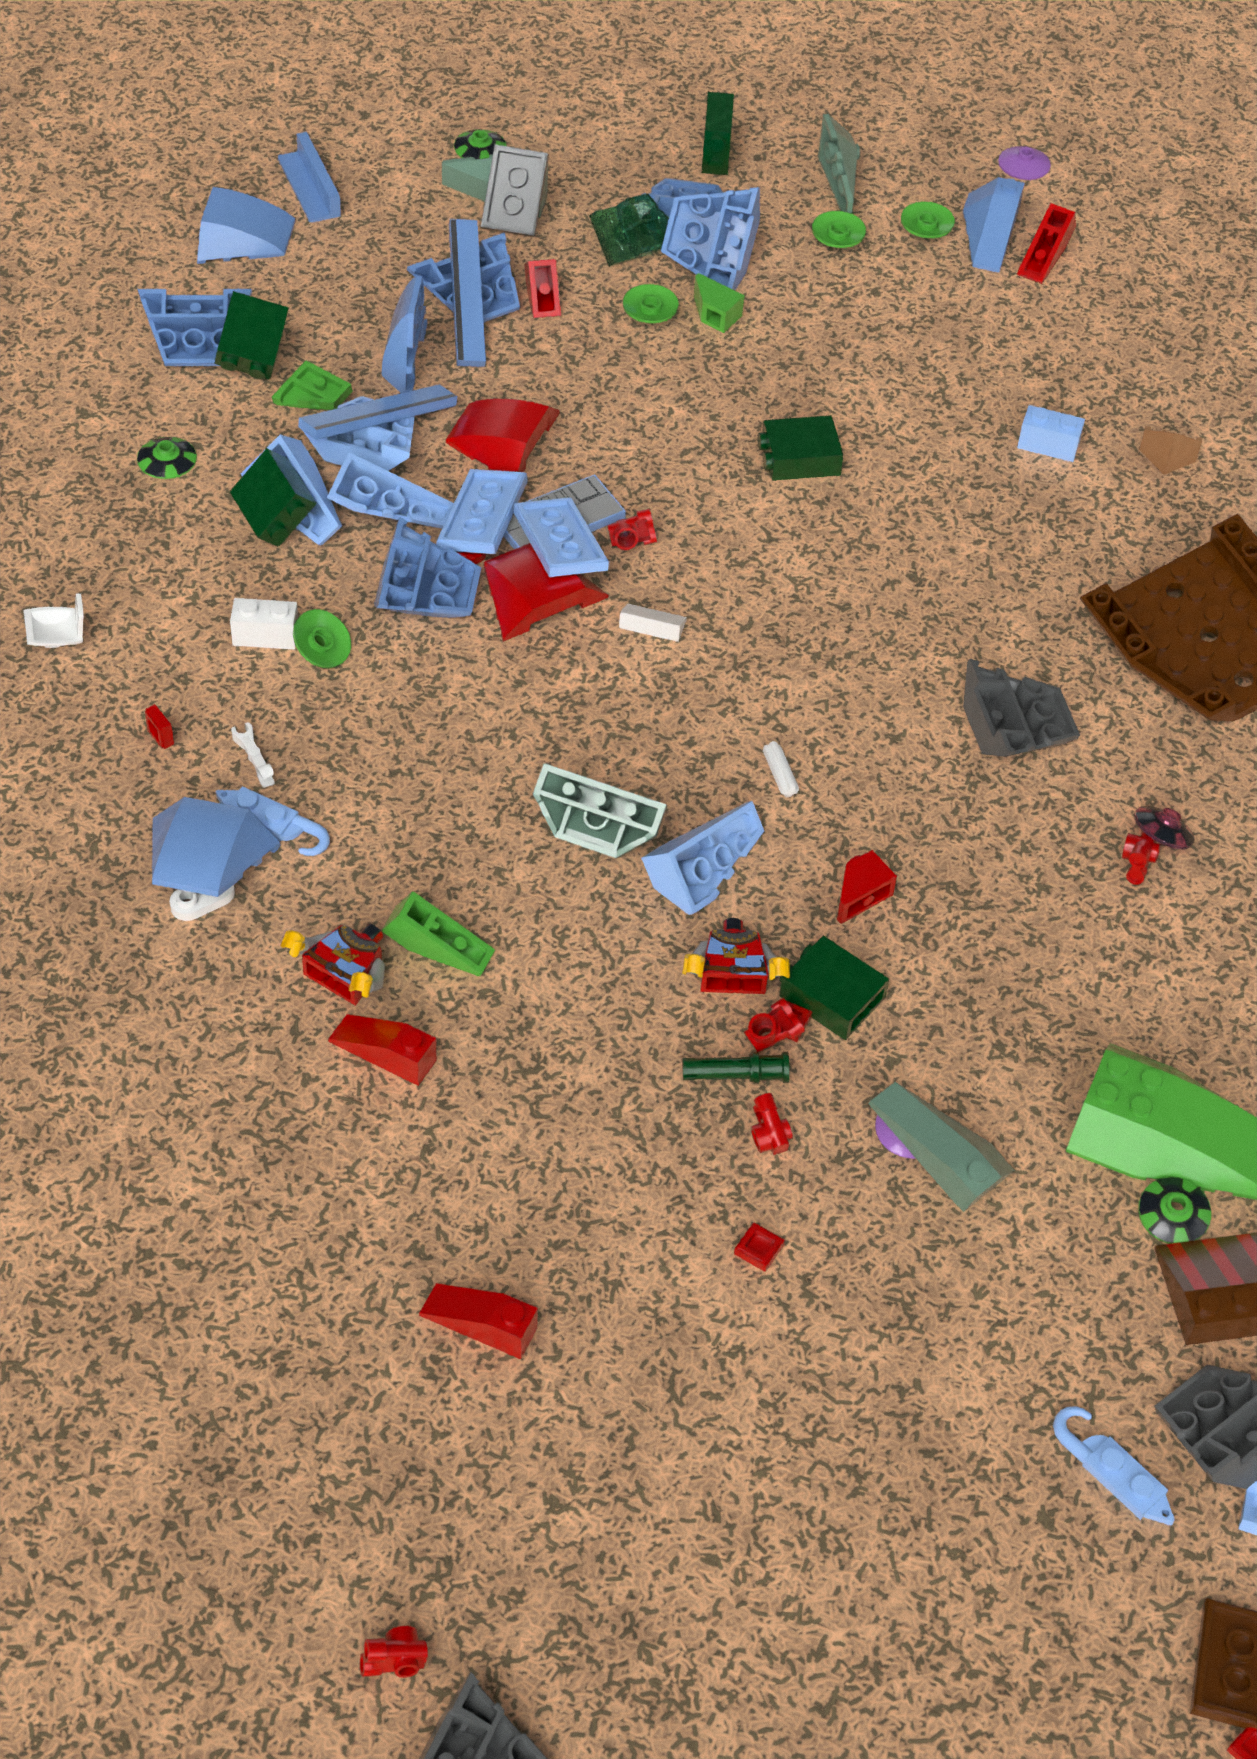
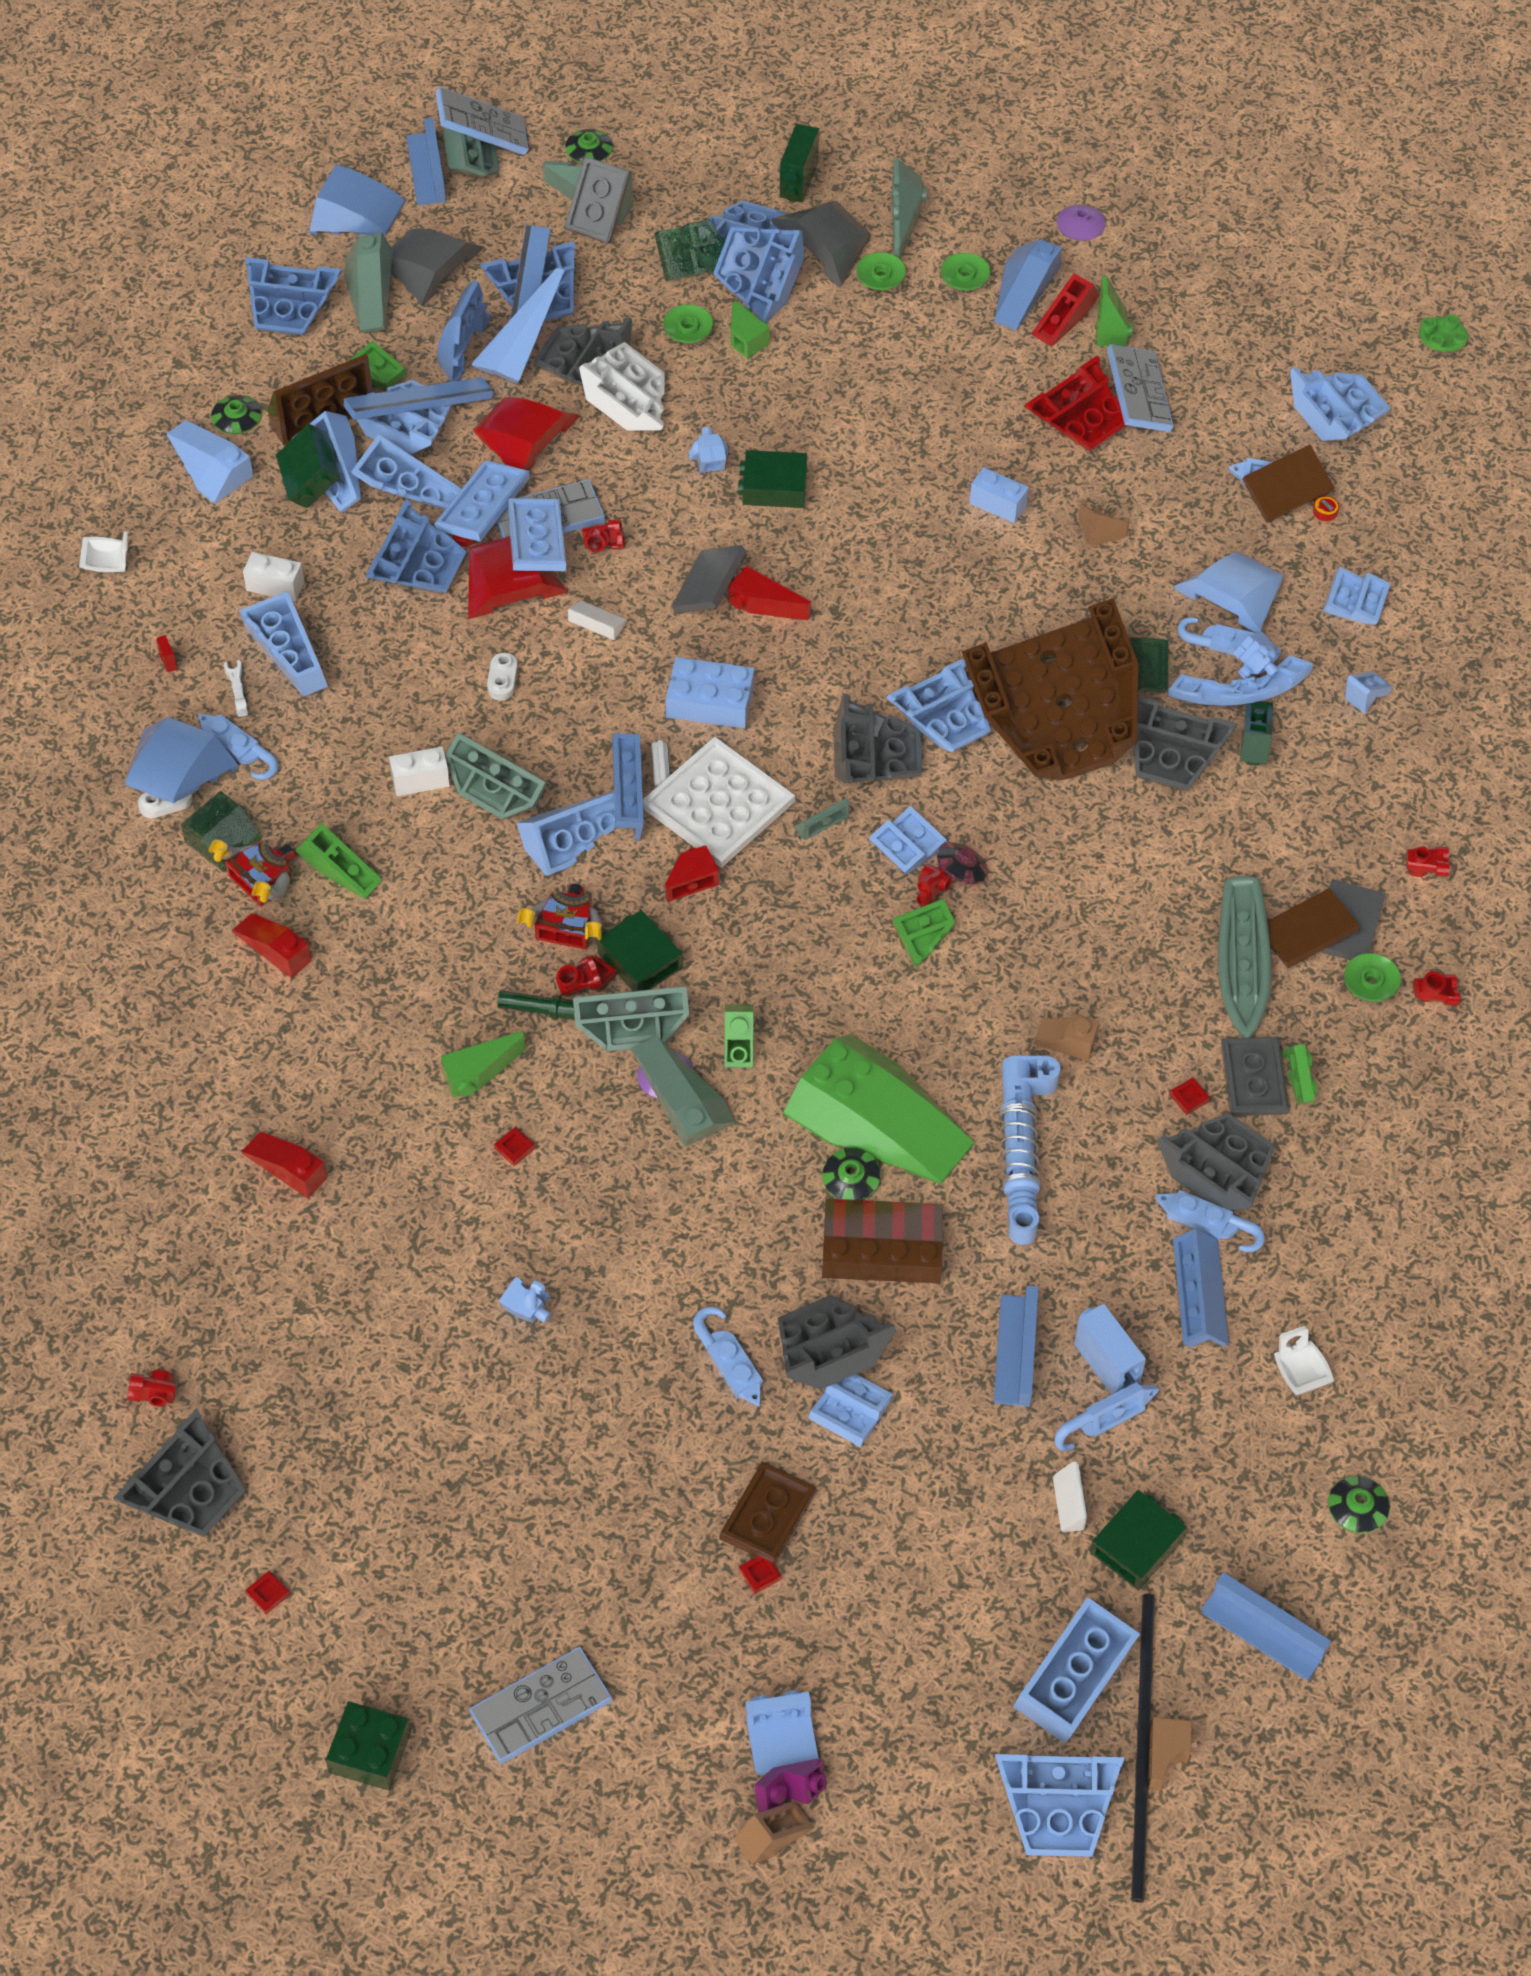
camera: 15 degrees right, 5 degrees up
(154, 509) = (210, 460): none -> light blue wedge
(251, 335) = (330, 313): dark green brick -> none
(256, 423) = (307, 399): none -> reddish brown slope
(273, 911) = (219, 820): none -> clear green slope
(280, 281) = (368, 280): none -> sand green wedge
(301, 692) = (282, 636): none -> light blue wedge
(328, 632) = (323, 589): bright green dish -> none
(339, 273) = (426, 258): none -> dark grey wedge
(350, 152) = (470, 154): none -> sand green wedge
(362, 128) = (481, 121): none -> light grey tile
(468, 345) = (513, 344): none -> light blue wedge
(504, 816) = (419, 771): none -> white brick
(543, 288) = (597, 297): slope -> none
(549, 347) = (580, 344): none -> dark grey wedge
(564, 691) = (502, 674): none -> white plate
(609, 375) = (625, 388): none -> white wedge
(679, 1157) = (477, 1065): none -> bright green slope
(720, 428) = (710, 451): none -> light blue piece
(757, 793) = (627, 782): none -> medium blue panel
(768, 560) = (708, 579): none -> dark grey tile
(771, 1131) = (552, 1059): red plate -> none
(780, 202) = (830, 235): none -> dark grey wedge
(812, 681) = (710, 692): none -> light blue piece
(835, 570) = (766, 597): none -> red slope
(845, 1445) = (525, 1302): none -> light blue piece
(854, 1063) = (631, 1017): none -> sand green wedge
(861, 799) = (718, 801): none -> white plate
(985, 1064) = (739, 1035): none -> bright green slope
(987, 802) = (823, 819): none -> sand green slope
(1081, 662) = (944, 708): none -> light blue wedge
(1092, 811) = (908, 840): none -> light blue slope
(1101, 248) = (1112, 317): none -> bright green slope
(1103, 336) = (1081, 407): none -> red wedge
(1149, 909) = (924, 929): none -> bright green wing
(1154, 311) = (1139, 388): none -> light grey tile

